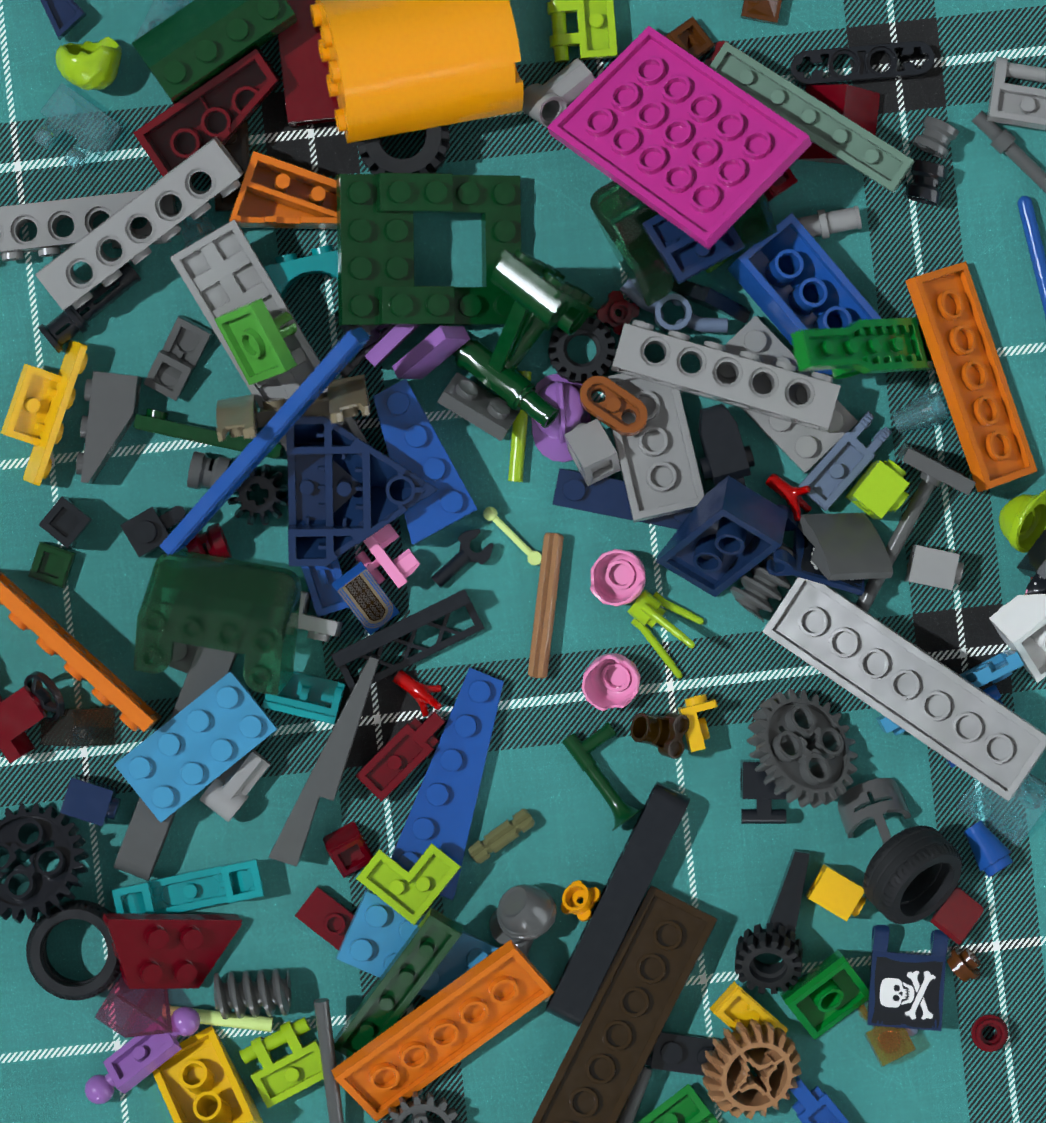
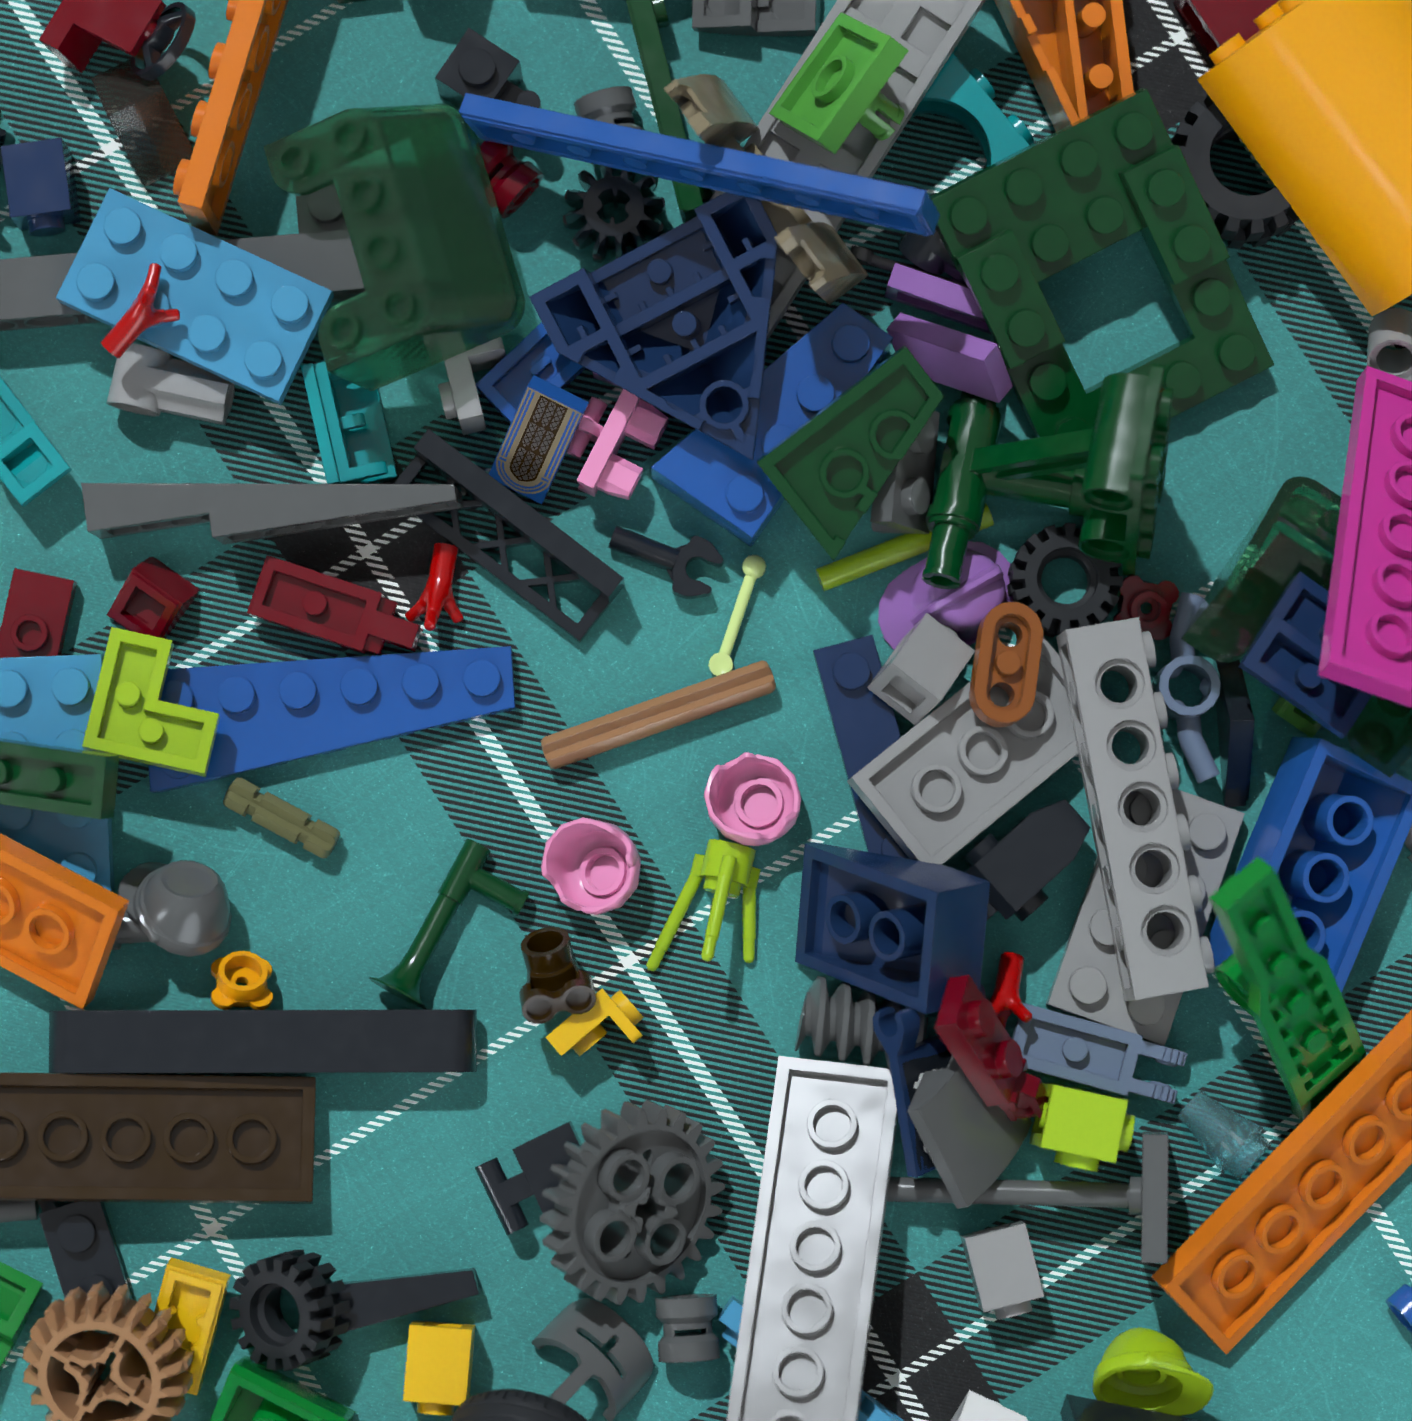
camera: 55 degrees right, 5 degrees down
(195, 782) = (139, 316): none -> red bar
(457, 435) = (851, 446): none -> dark green wing
(817, 521) = (987, 1051): none -> dark red hinge
(874, 748) = (687, 1313): none -> dark grey wheel

